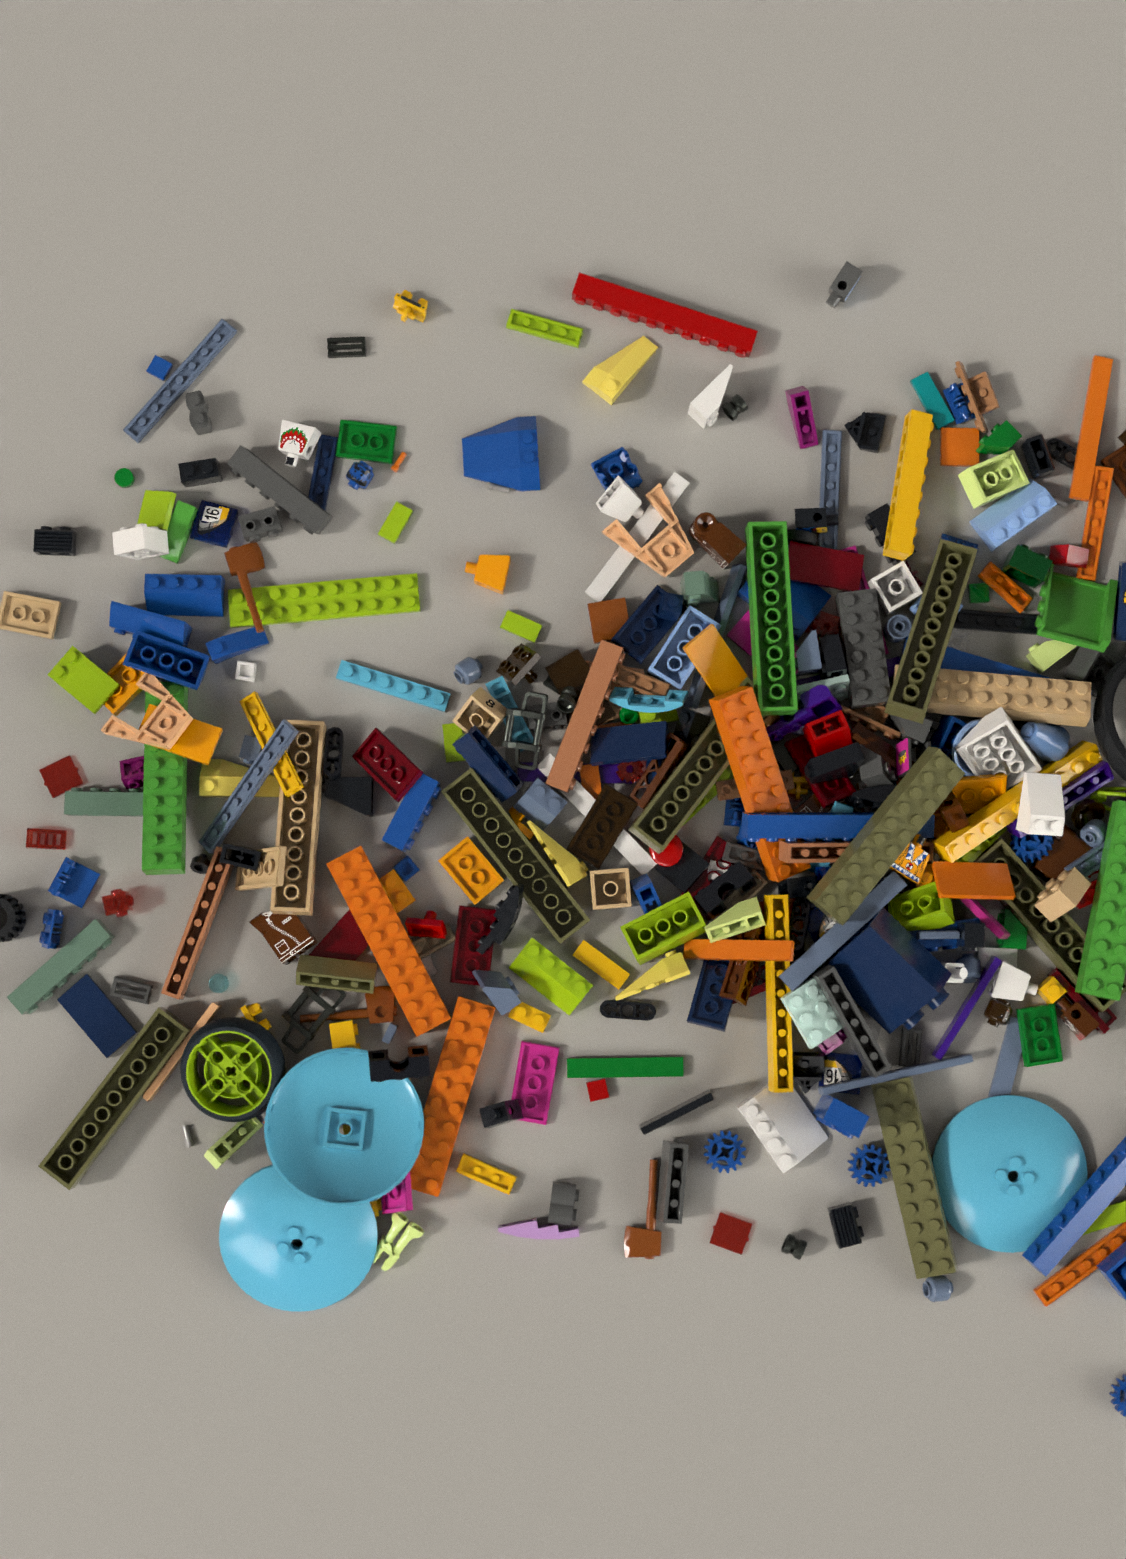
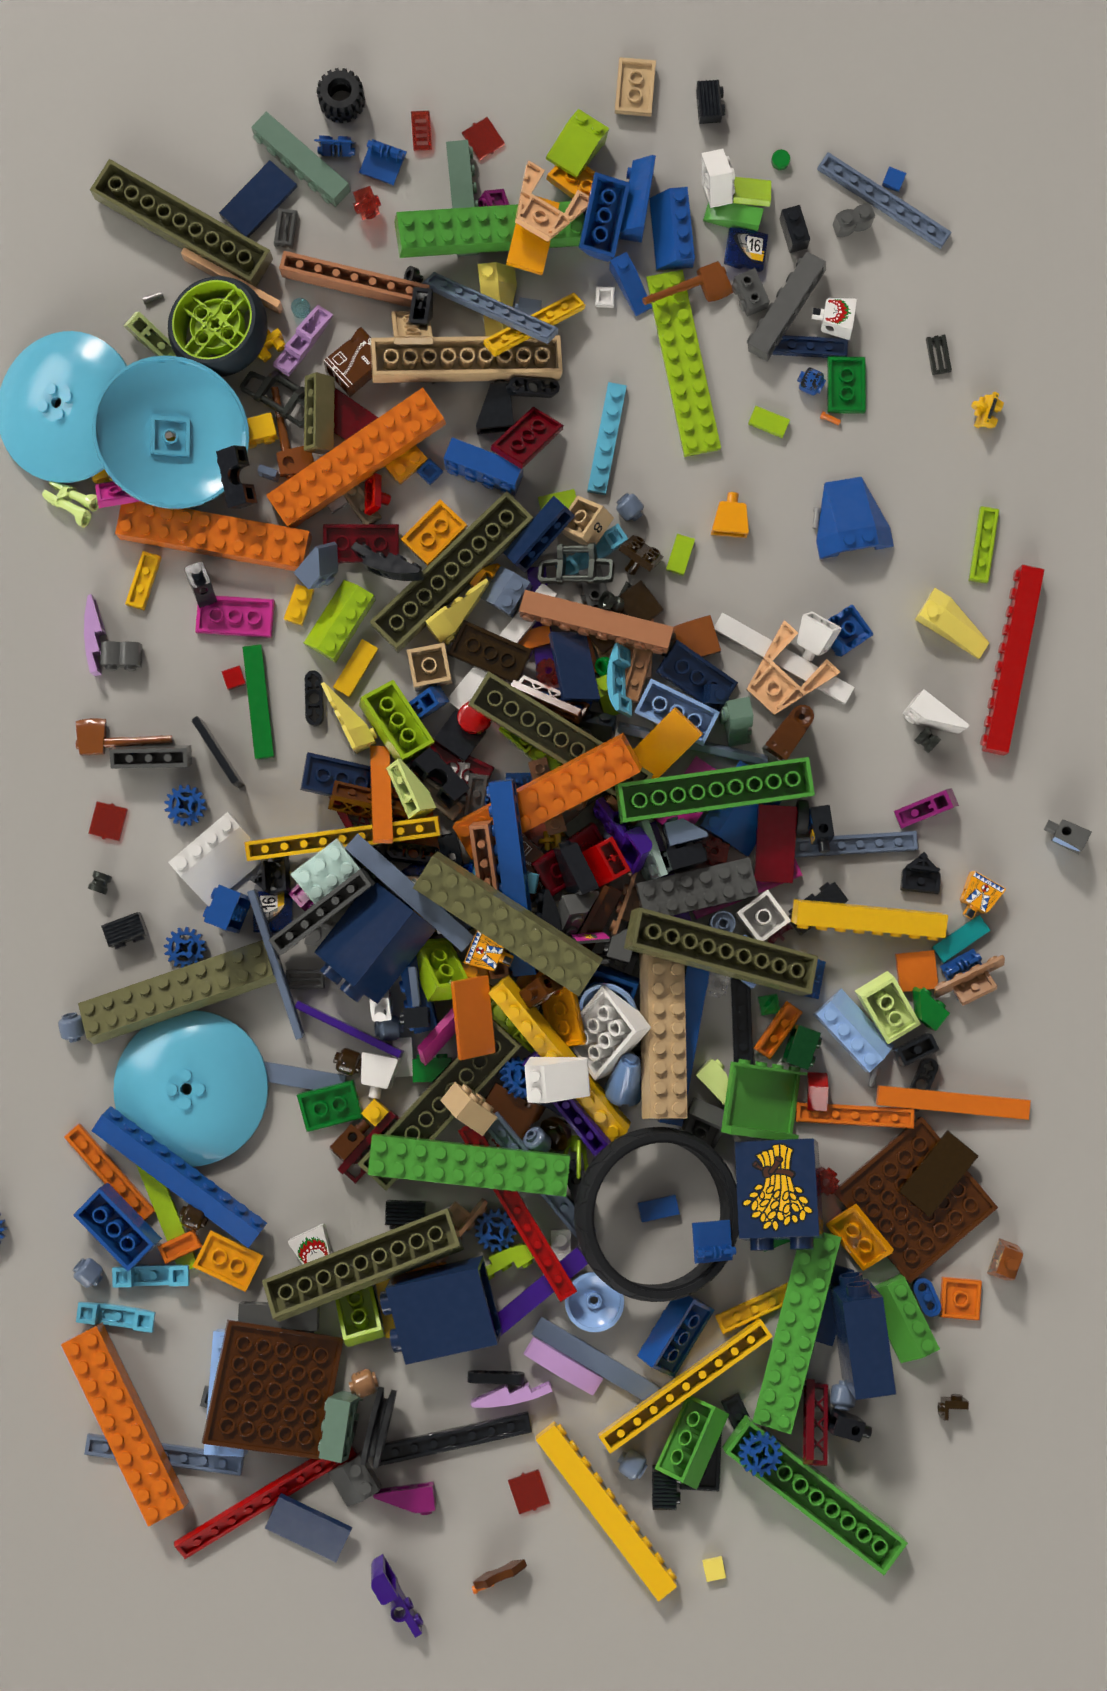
camera: 80 degrees right, 0 degrees up
(253, 984) = (303, 340): none -> lavender slope
(892, 377) = (979, 894): none -> torso

